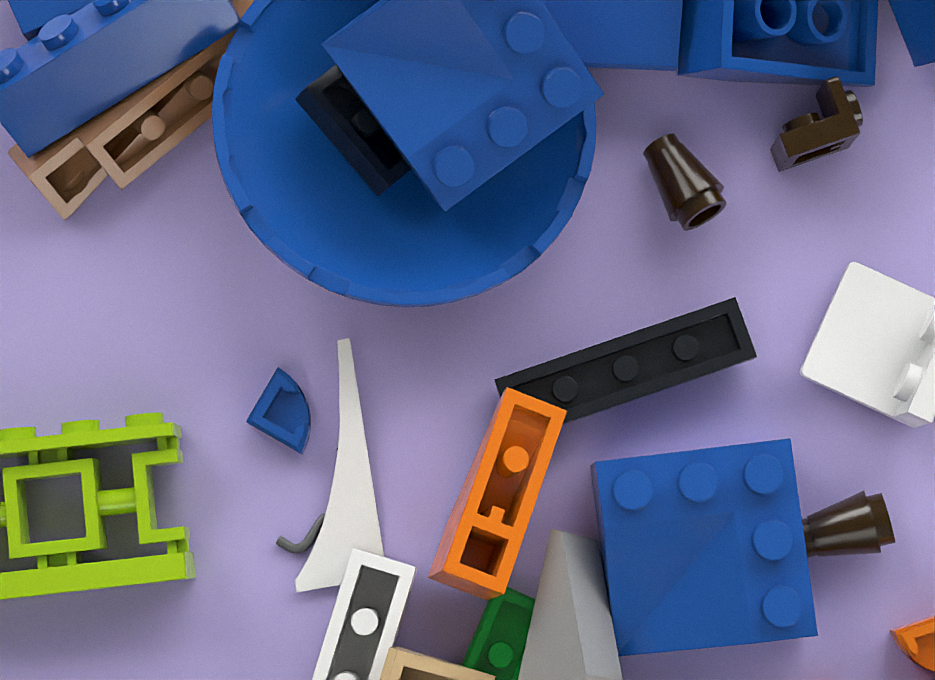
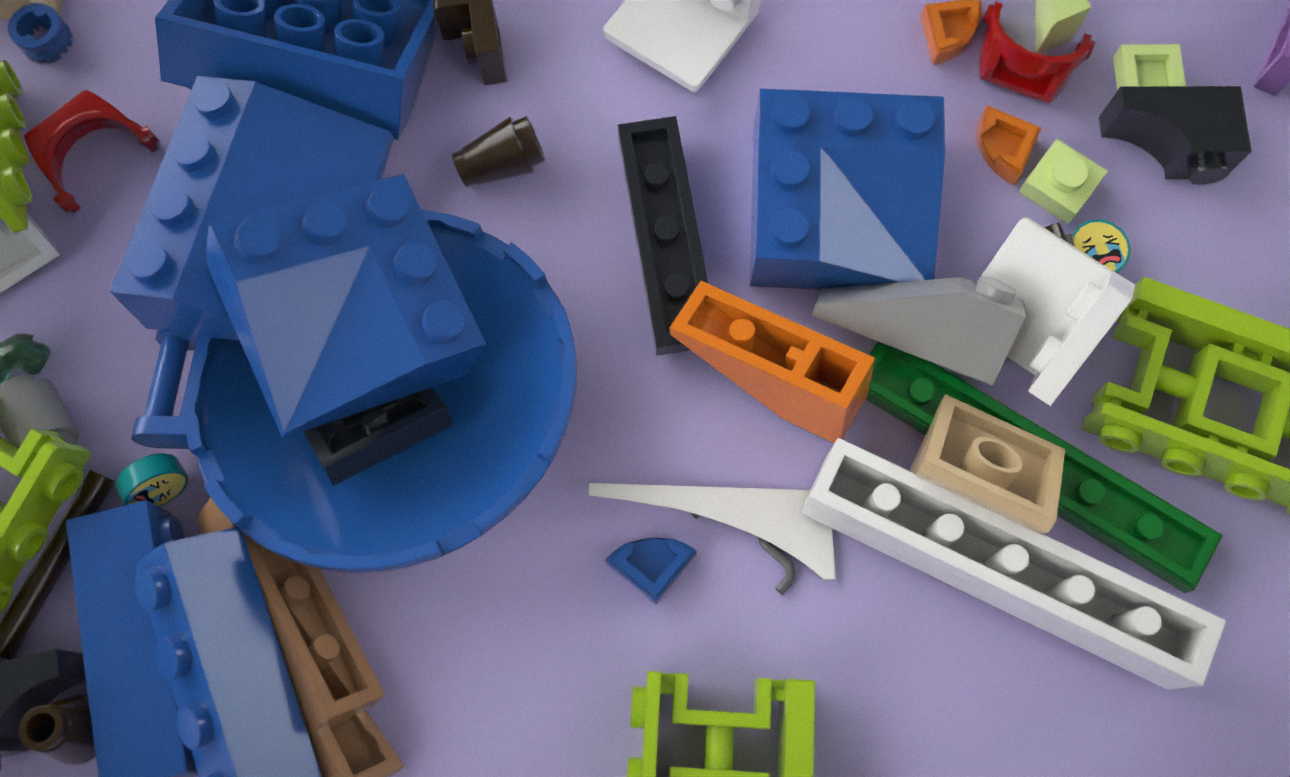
camera: 80 degrees left, 10 degrees down
(849, 527) = (841, 60): dark brown cone -> none

